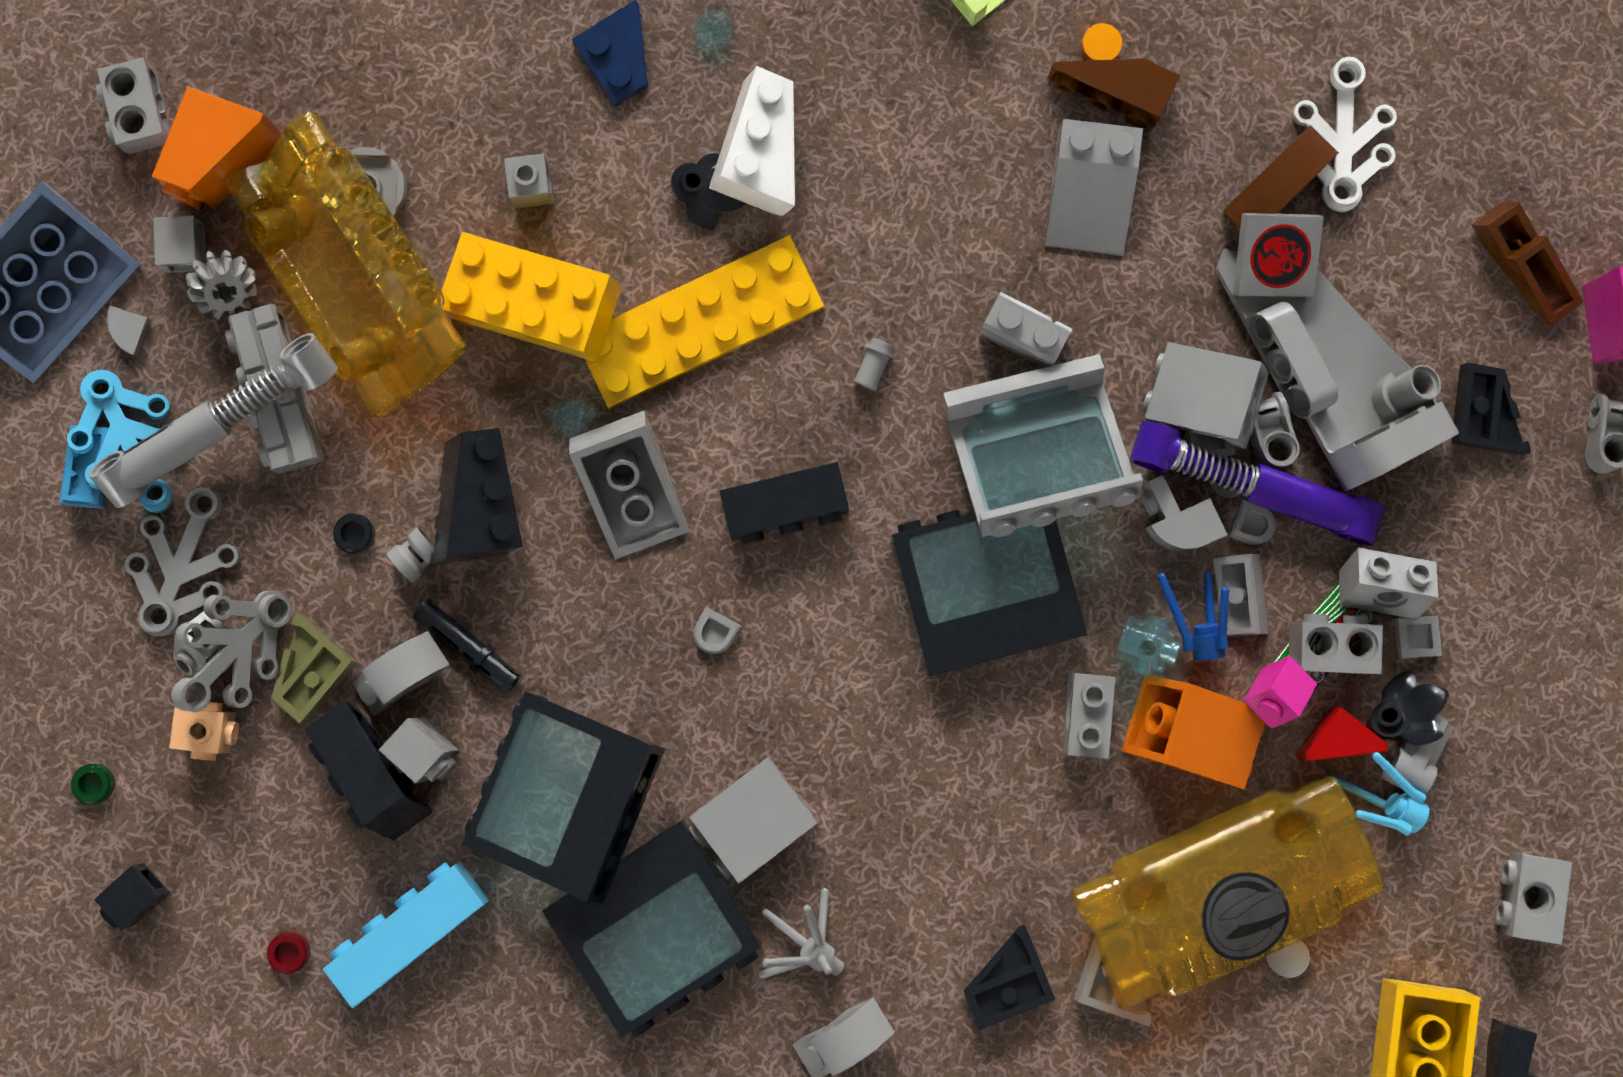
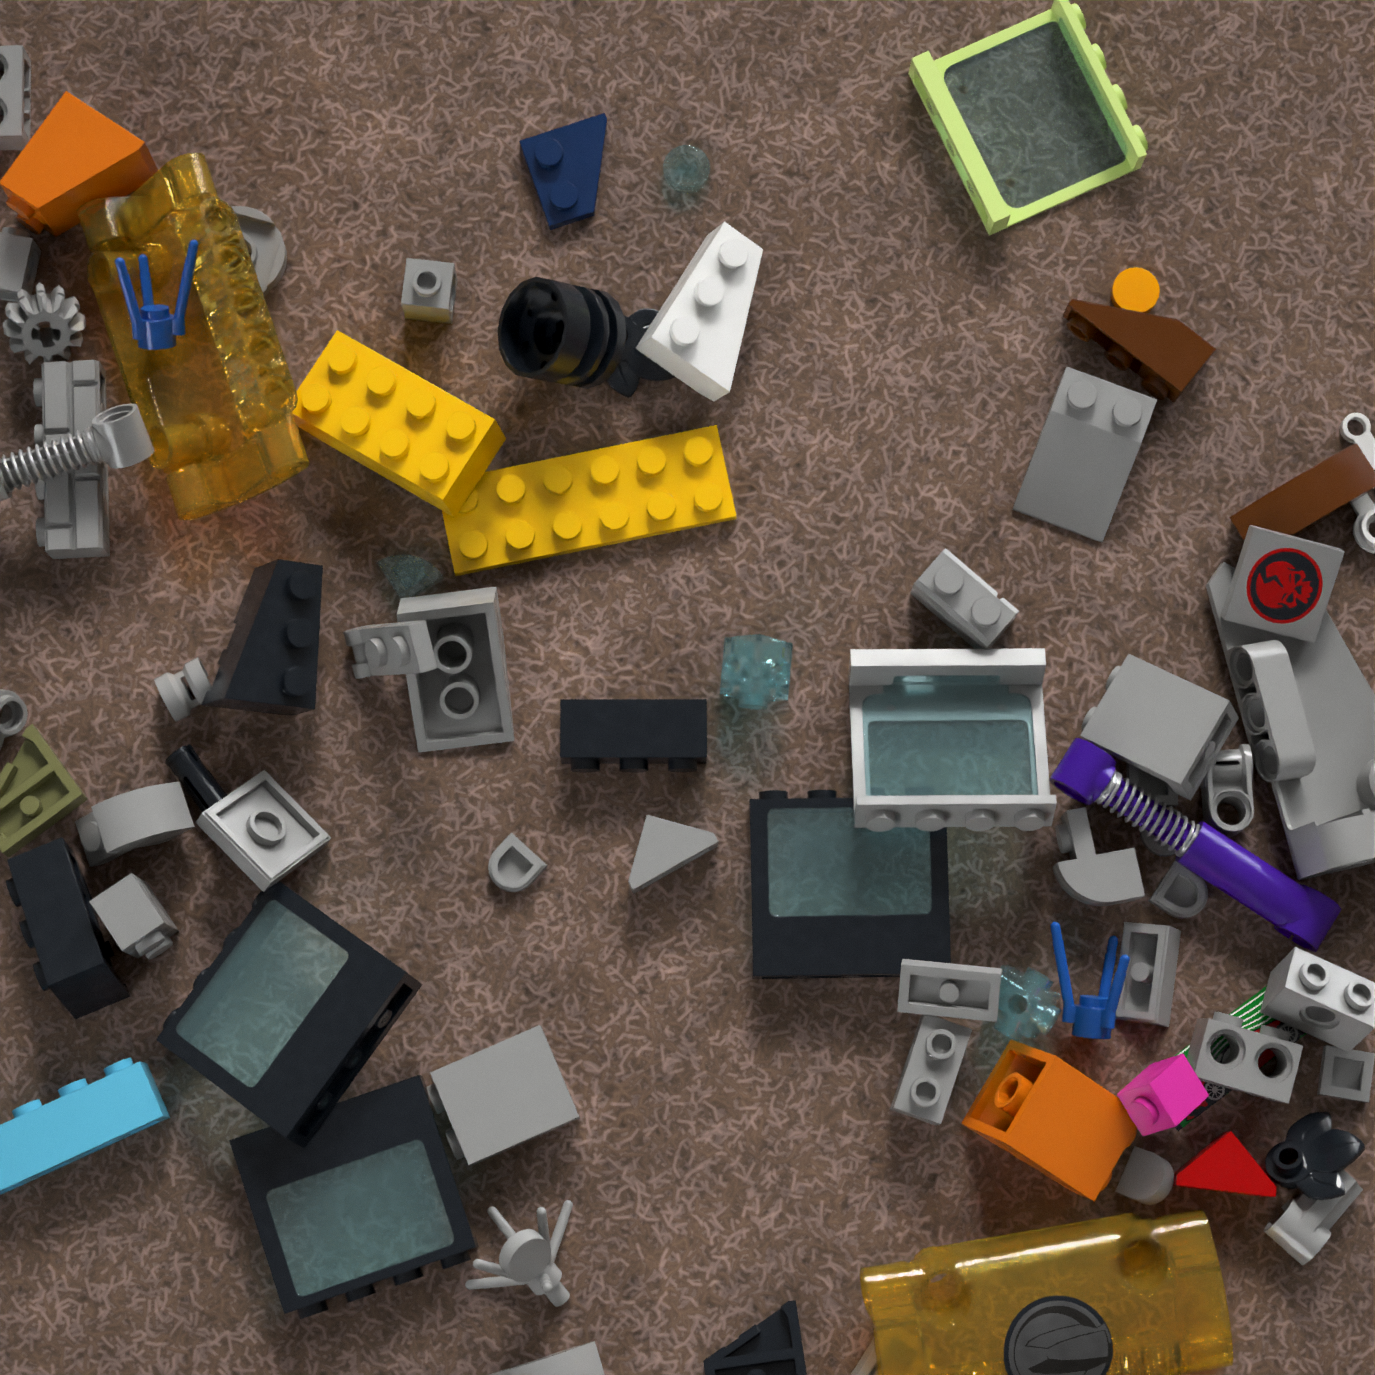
camera: 10 degrees right, 5 degrees down
(312, 264) = (154, 324): none -> blue plant
(354, 533) = (121, 648): black tile -> none
(505, 654) = (263, 830): none -> light grey tile
(572, 483) = (391, 649): none -> light grey plate
(646, 190) = (561, 333): none -> black wheel
(802, 946) = (525, 1255): none -> light grey tile
(833, 589) = (665, 848): none -> light grey slope
(871, 428) = (756, 670): none -> clear light blue brick
(874, 363) = (778, 597): light grey pin -> none
(1090, 650) = (949, 990): none -> light grey plate
(1279, 759) = (1146, 1177): none -> light grey tile
(1404, 811) = (1280, 1275): medium azure plant -> none

